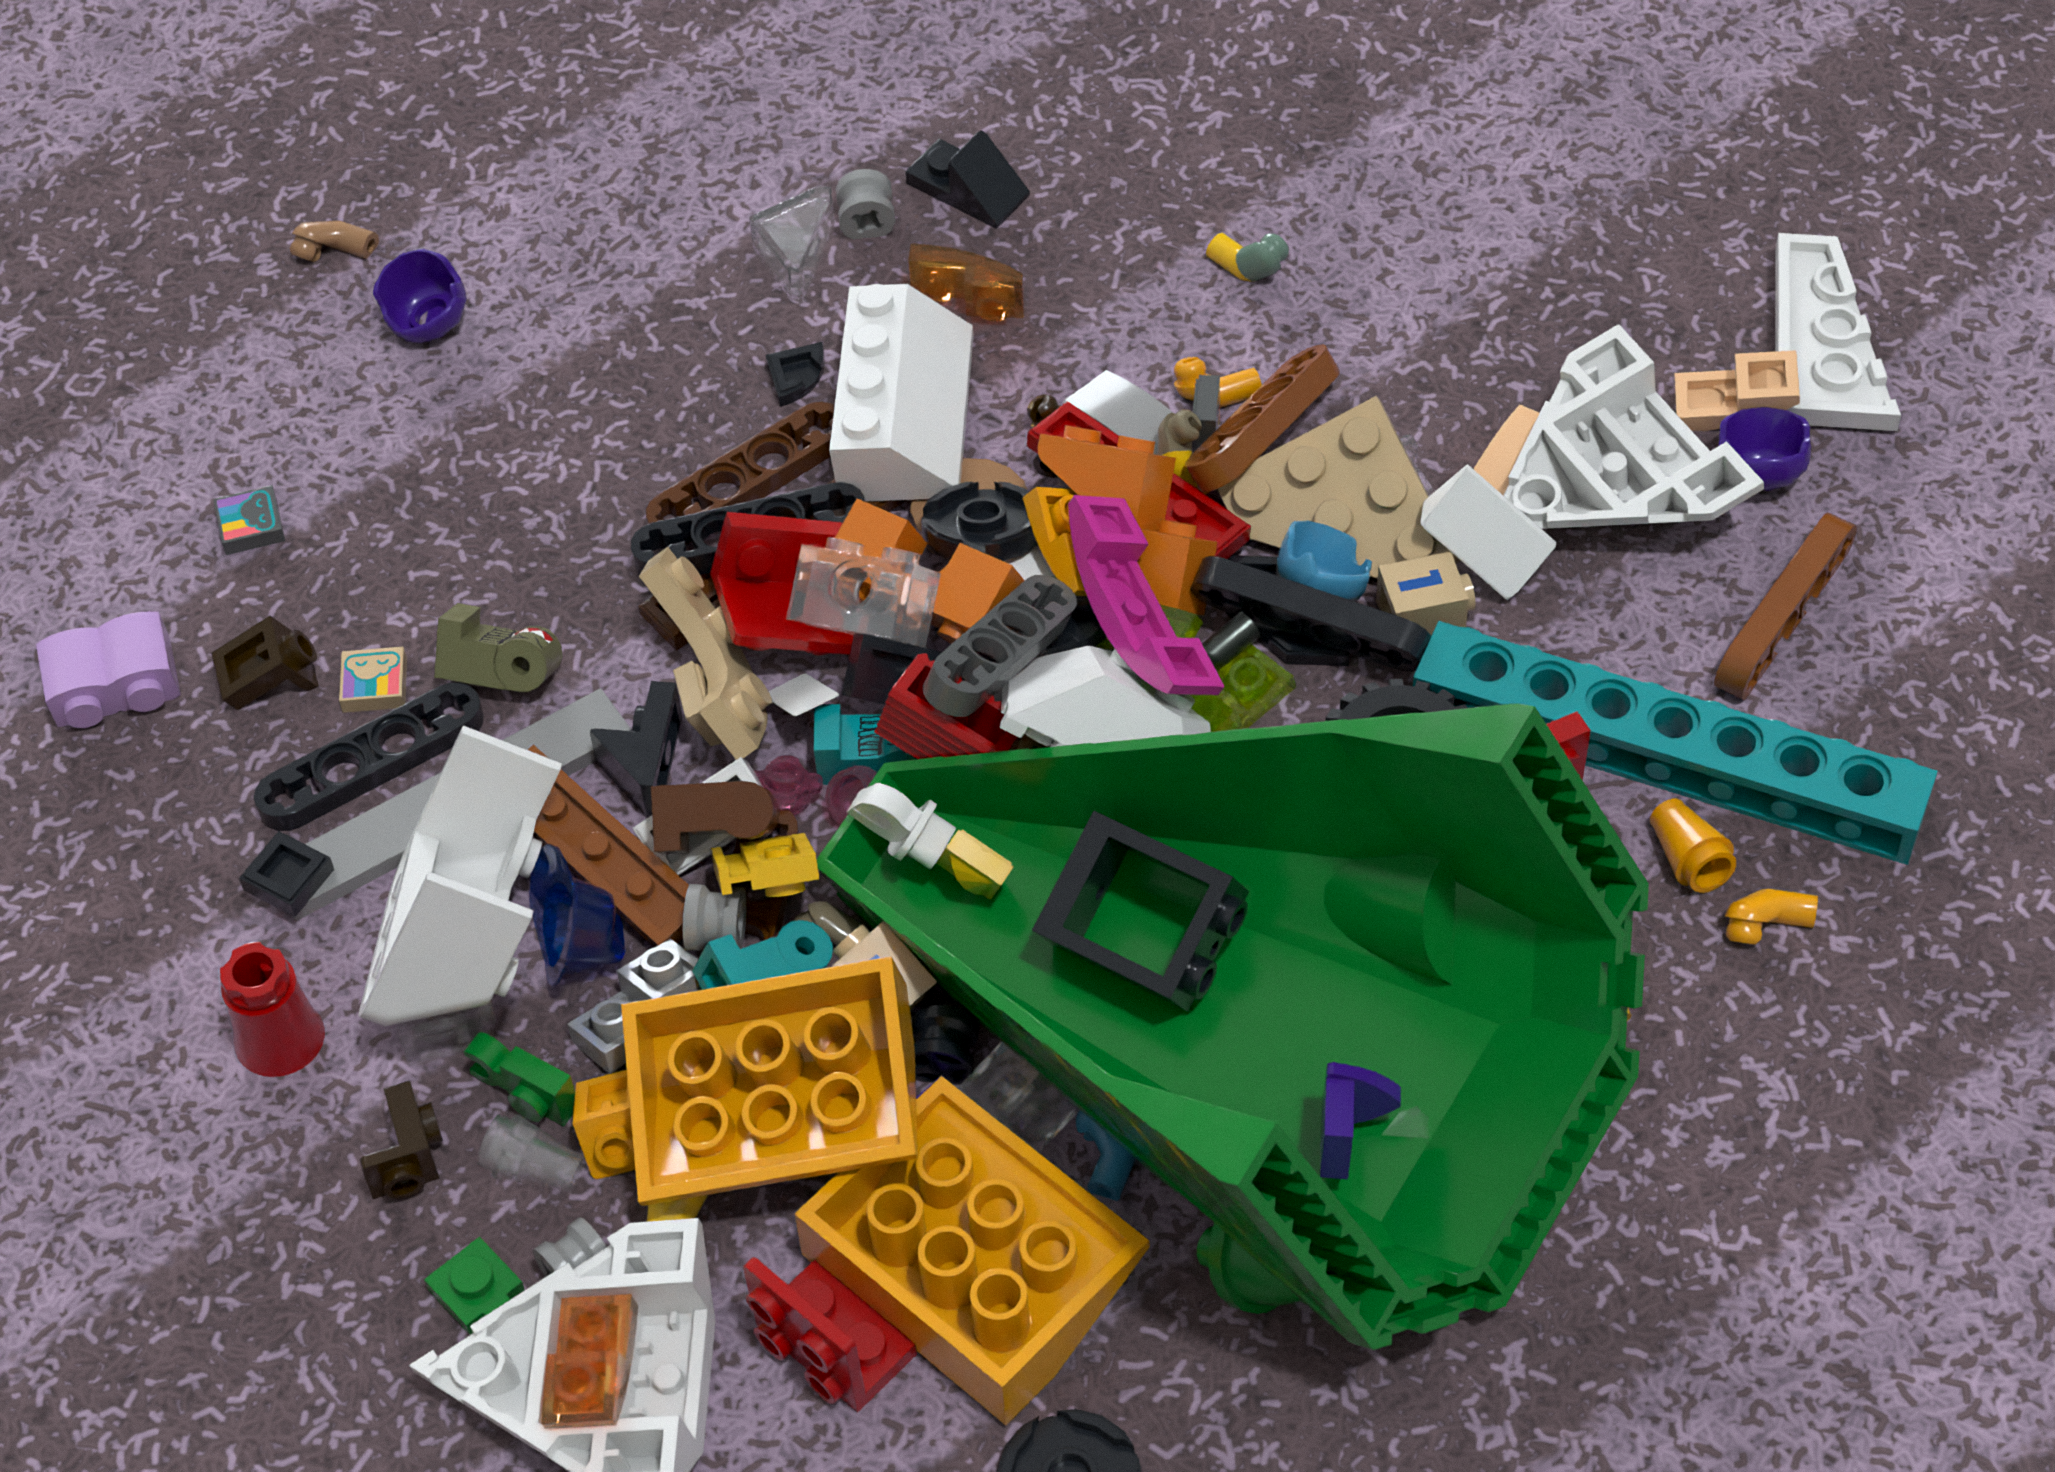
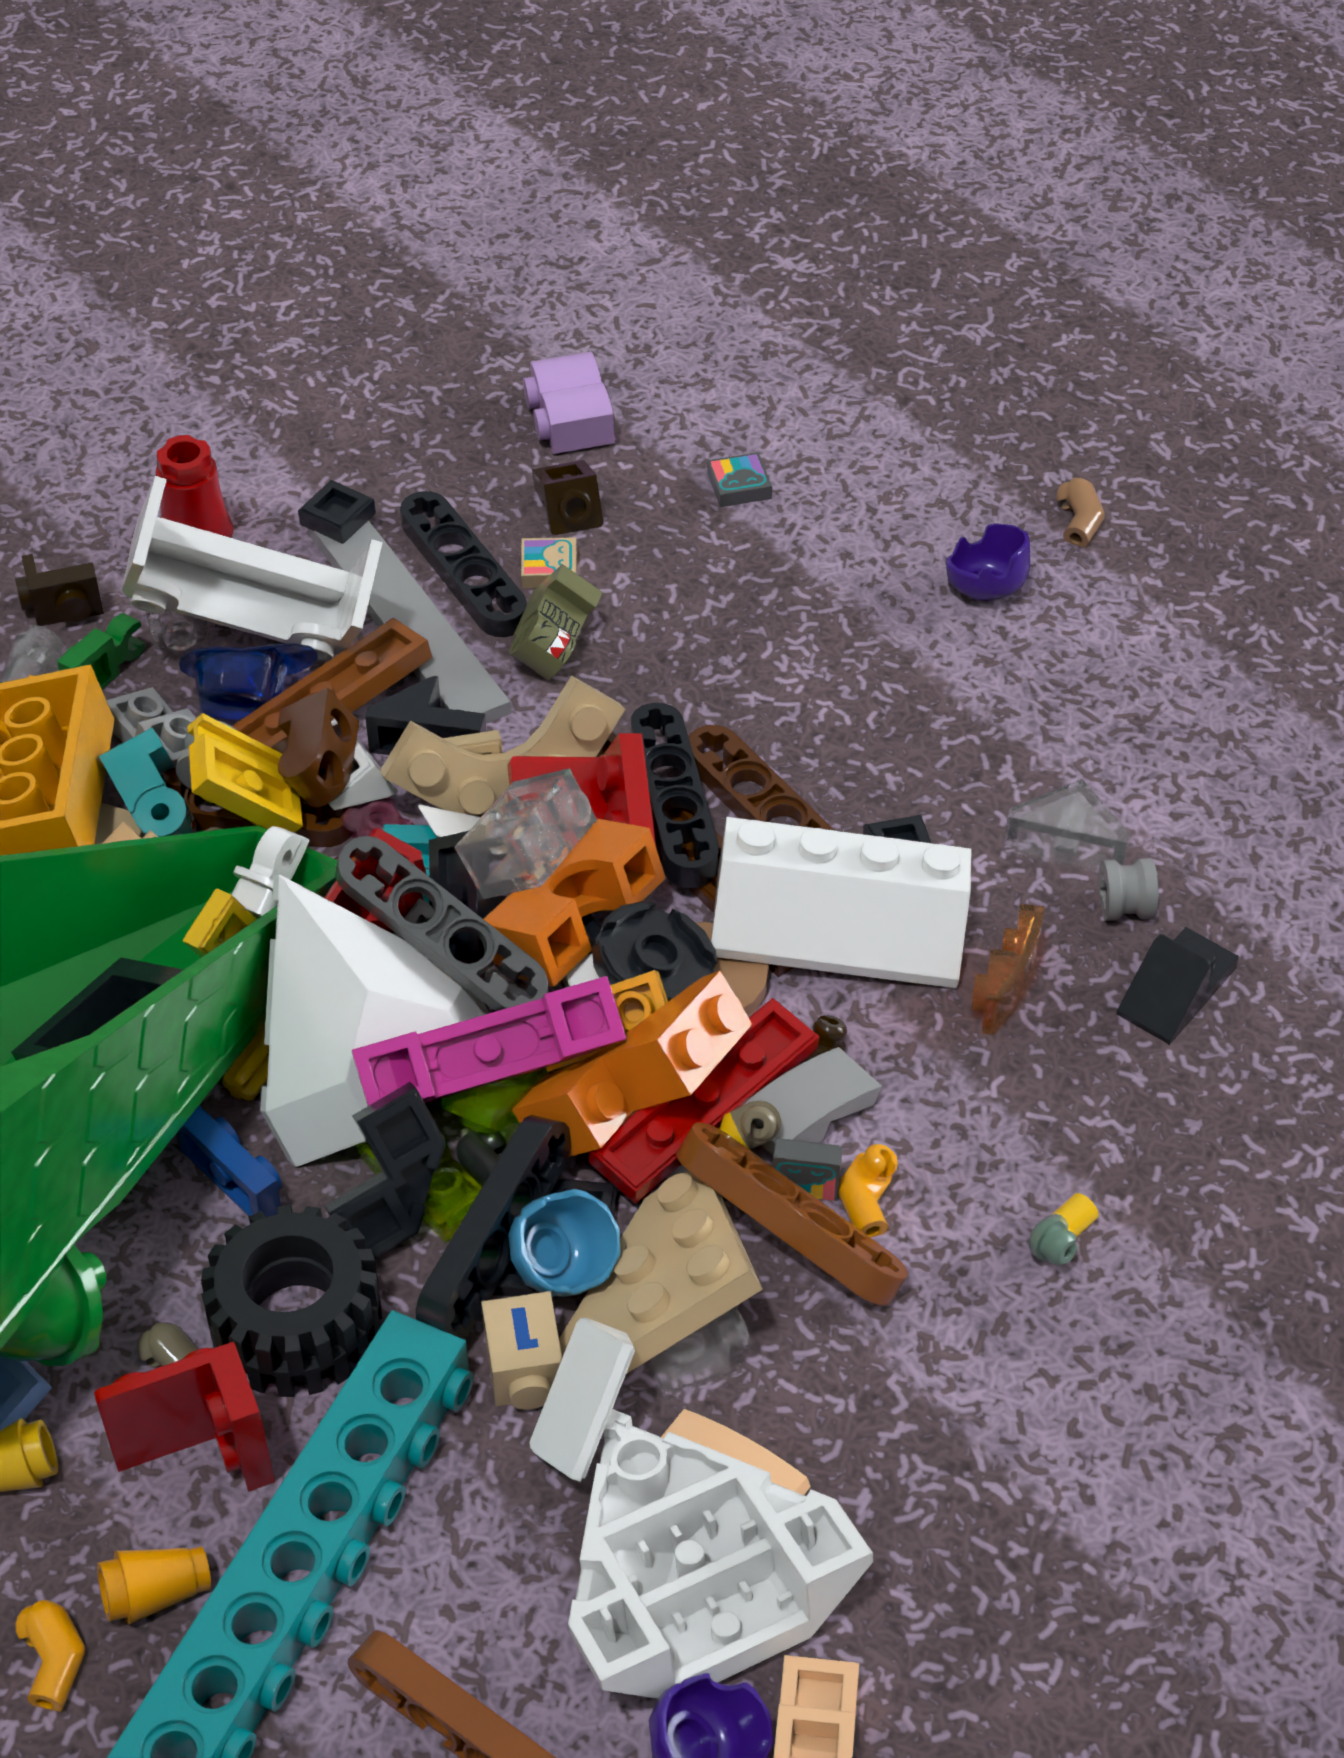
camera: 90 degrees right, 5 degrees down
(1247, 679) = (408, 1152): none -> black tile

